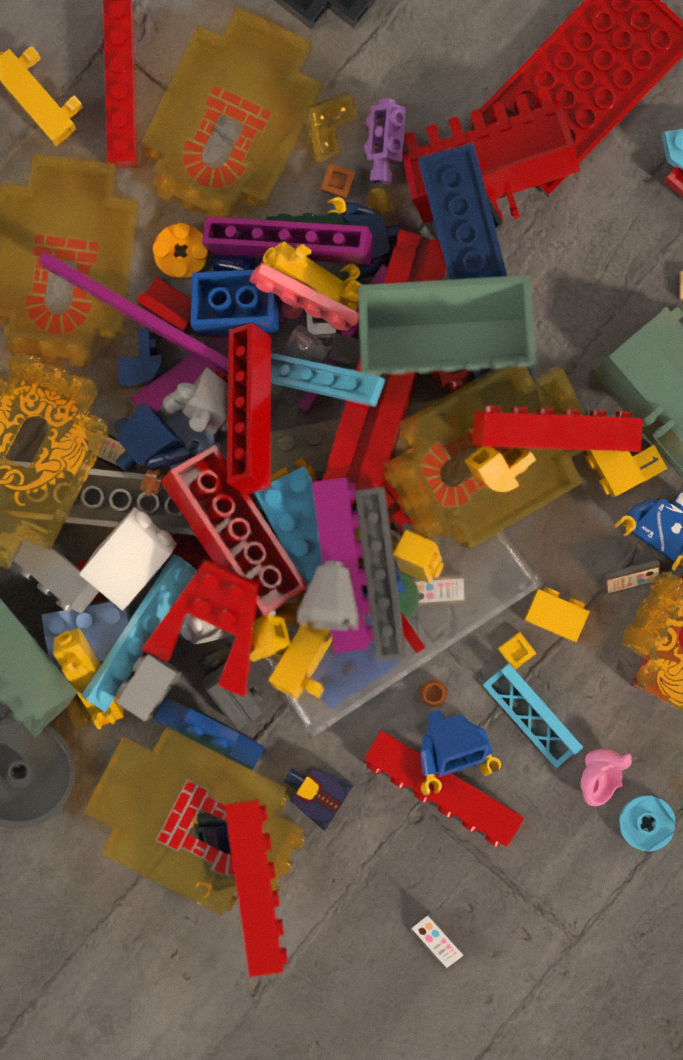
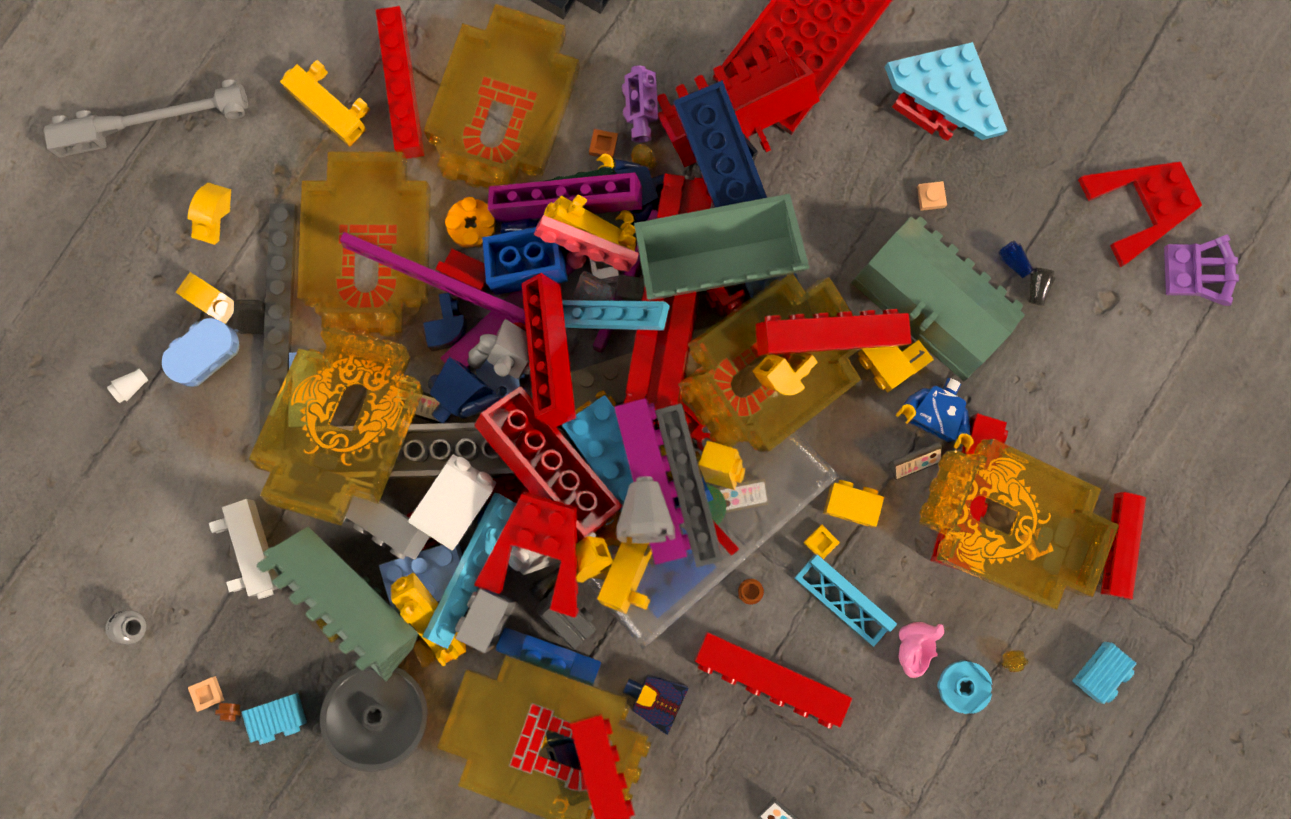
camera: 10 degrees left, 5 degrees down
(152, 482) = (466, 429): dark orange plate -> none
(322, 122) = (583, 93): clear yellow plate -> none
(452, 746) = (775, 639): blue torso -> none

